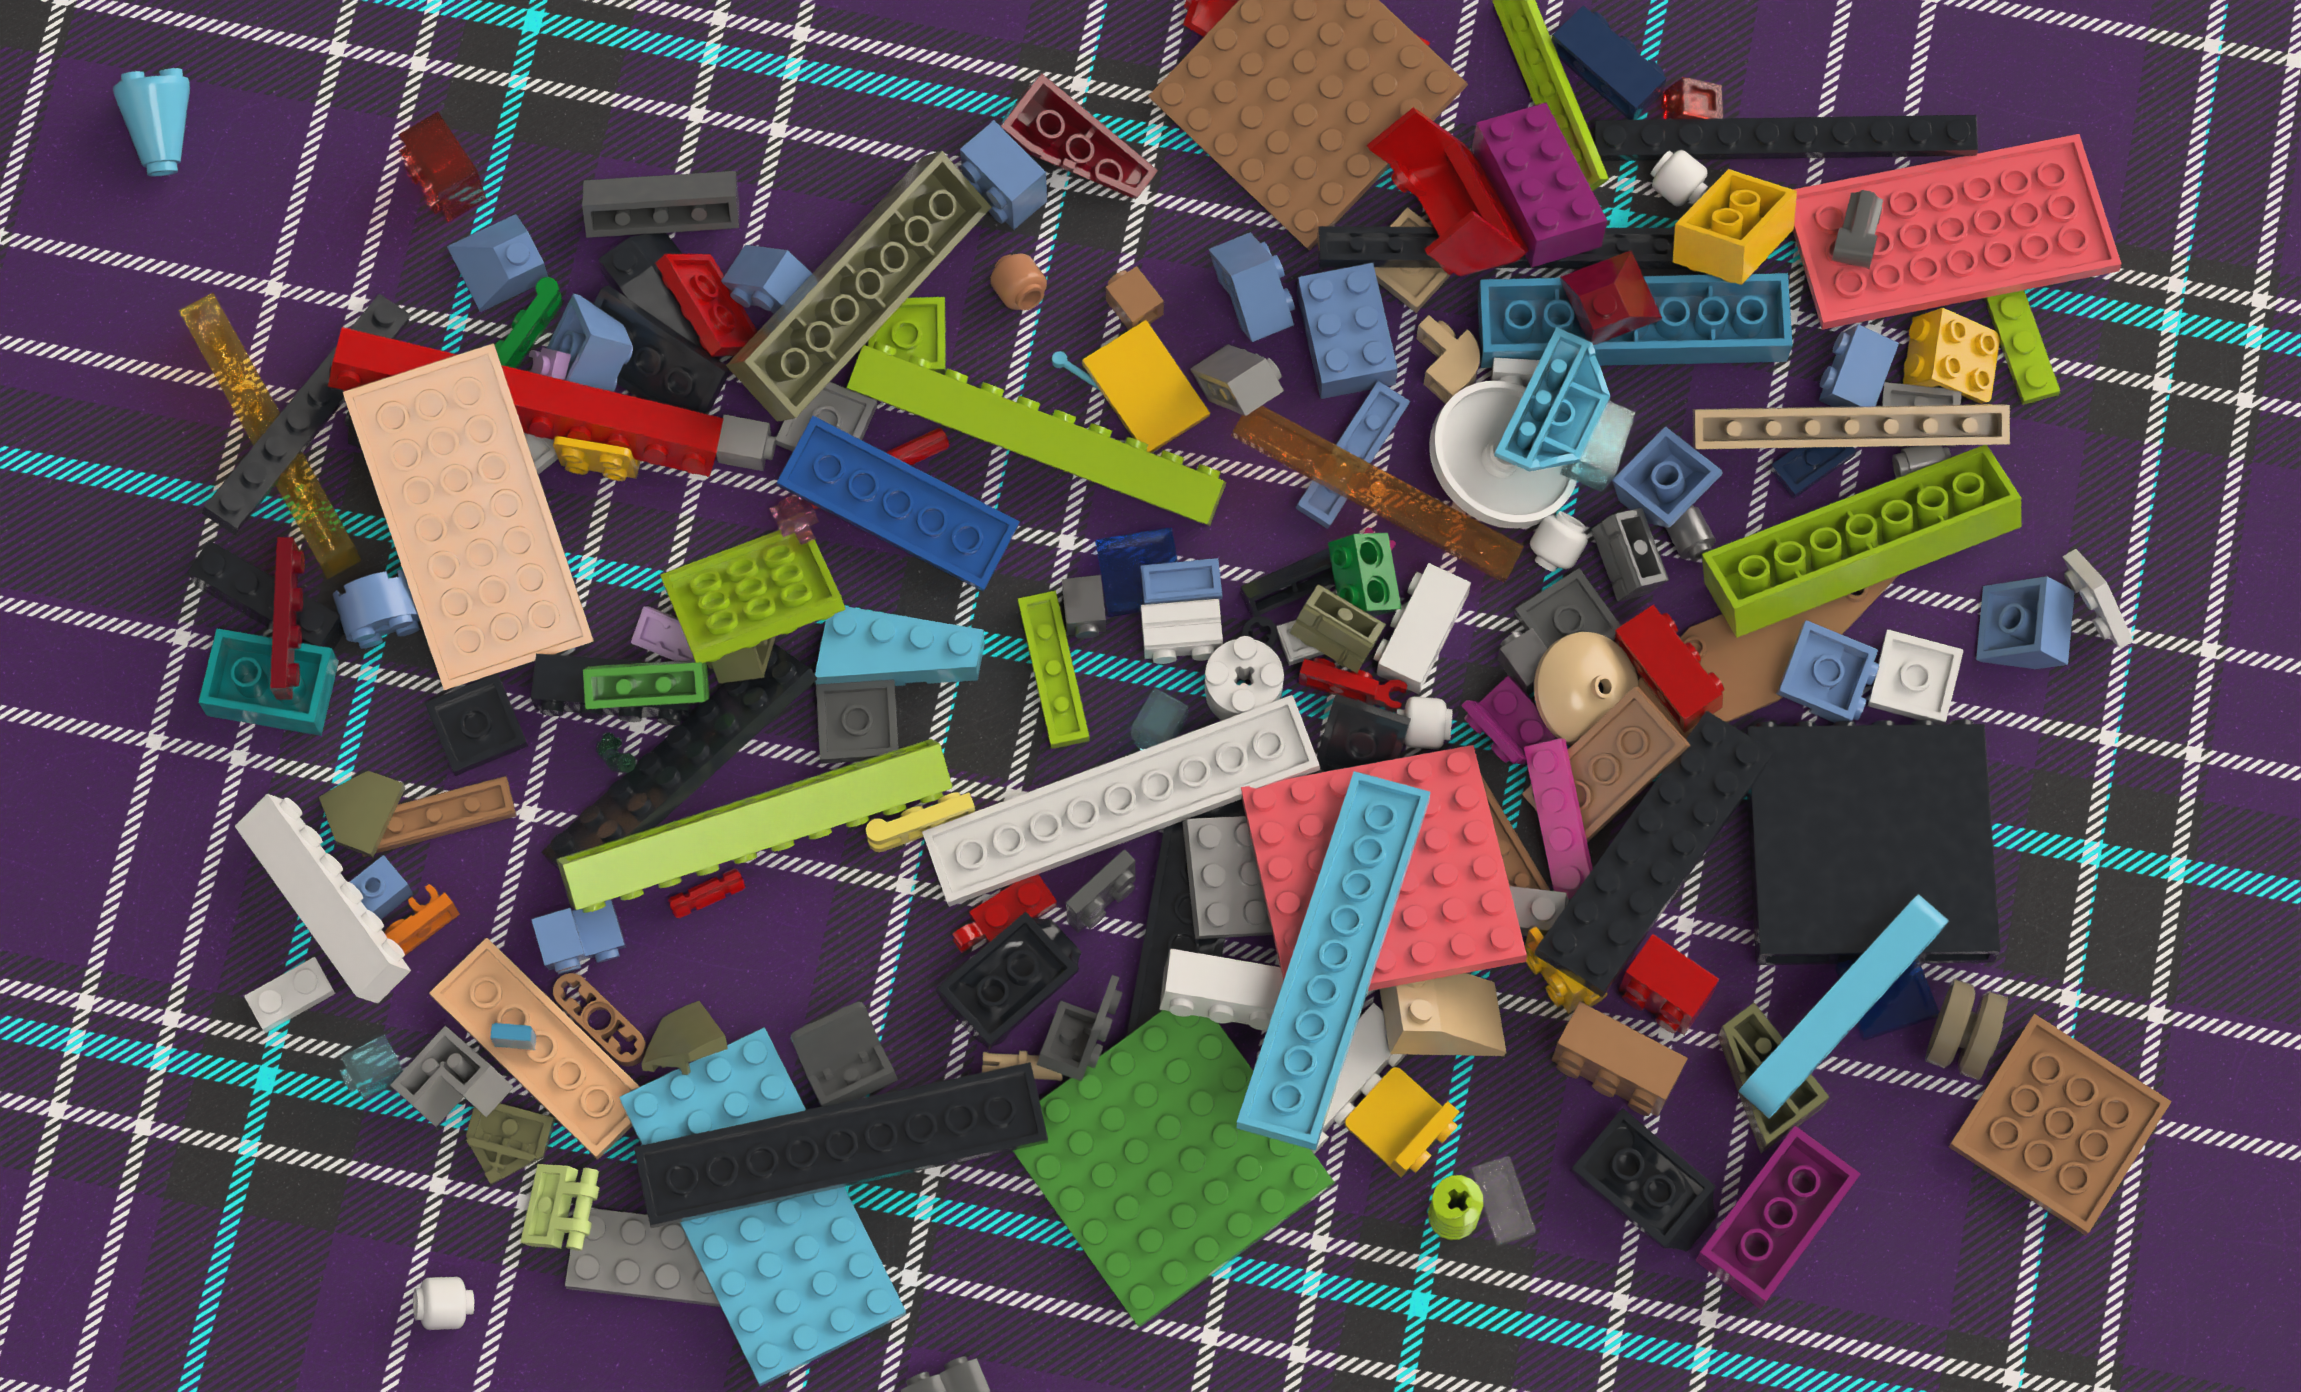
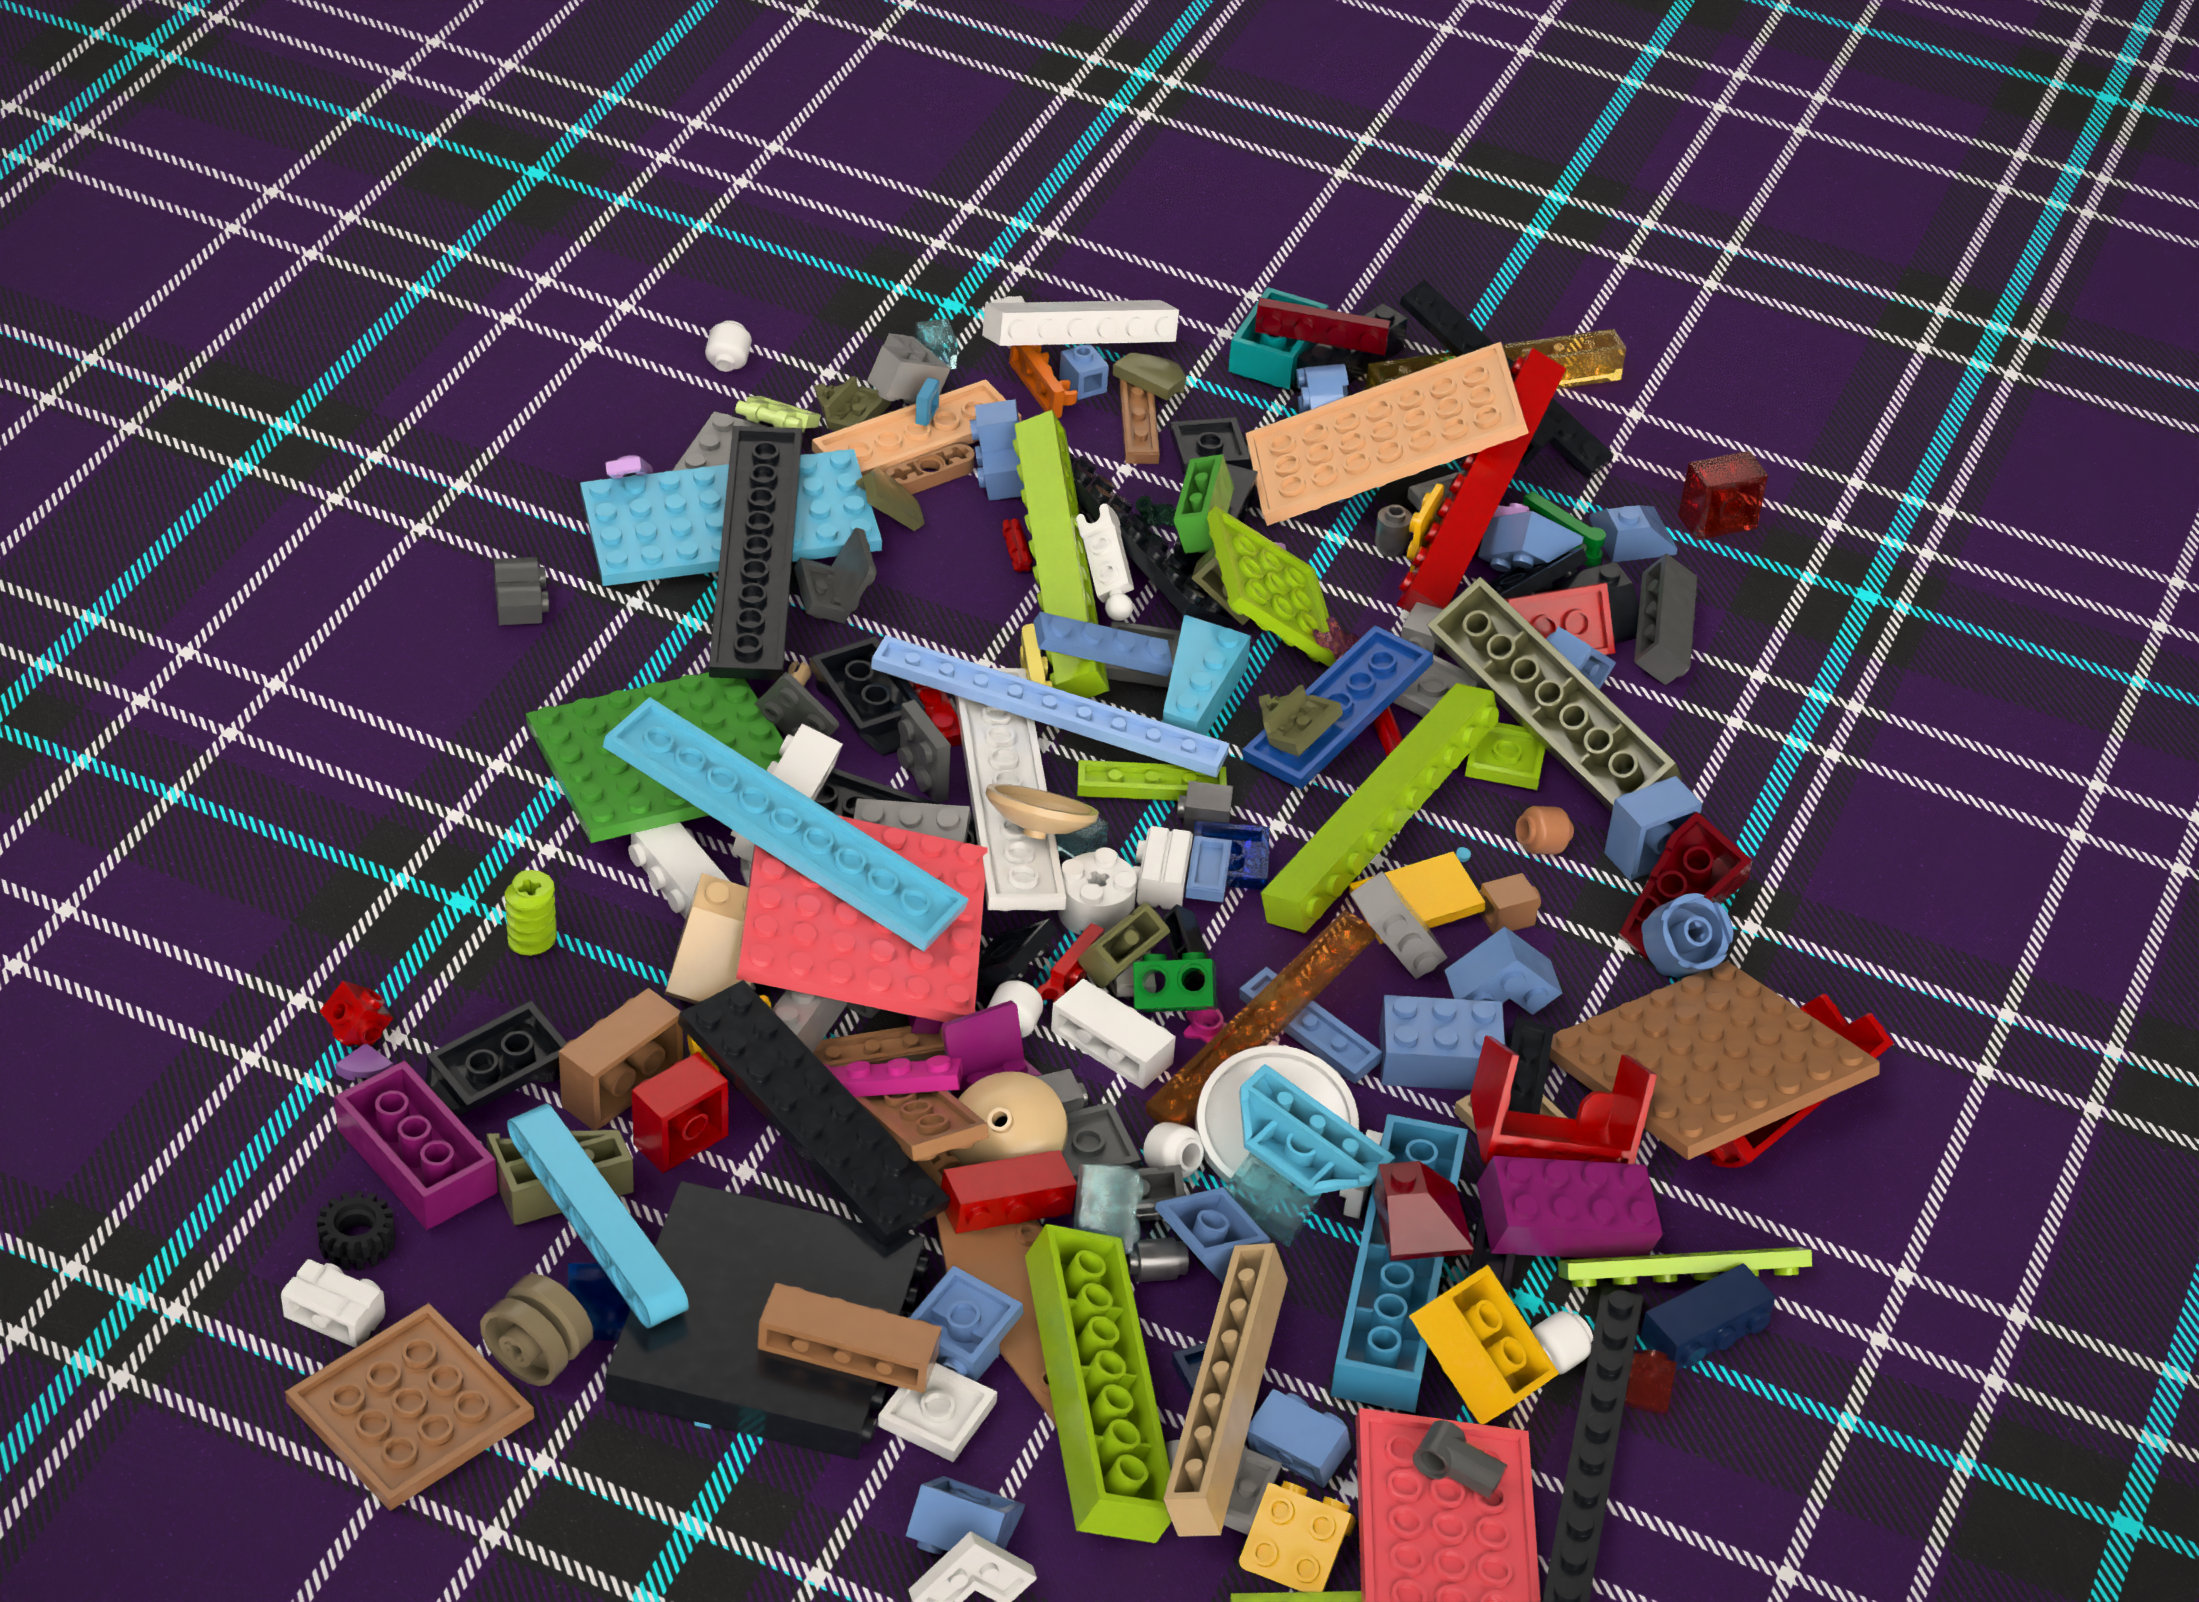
camera: 100 degrees right, 30 degrees down
(155, 116) = (1798, 359): medium azure cone -> none
(586, 499) = (1392, 530): none -> flat silver brick
(724, 1334) = (628, 466): none -> lavender plate
(753, 772) = (1108, 562): none -> white plate
(905, 741) = (1103, 644): none -> medium blue plate
(942, 536) = (1297, 719): none -> olive slope
(1000, 784) = (1050, 706): none -> light blue plate
(1151, 126) = (1687, 935): none -> medium blue brick
(1192, 736) = (1040, 810): none -> tan dish
(1401, 1122) = (631, 913): yellow bracket -> none
(1456, 360) = (1378, 1100): tan brick -> none
(1503, 1201) = (526, 967): clear plate -> none
(1630, 1334) = (356, 1014): none -> red brick
(1673, 1313) = (362, 1063): none -> medium lavender tile
(1678, 568) = (1108, 1201): none -> clear light blue bracket
(1899, 1225) = (356, 1212): none -> black tyre
(1902, 751) = (849, 1337): none -> medium nougat brick
(1974, 1228) = (333, 1303): none -> white brick

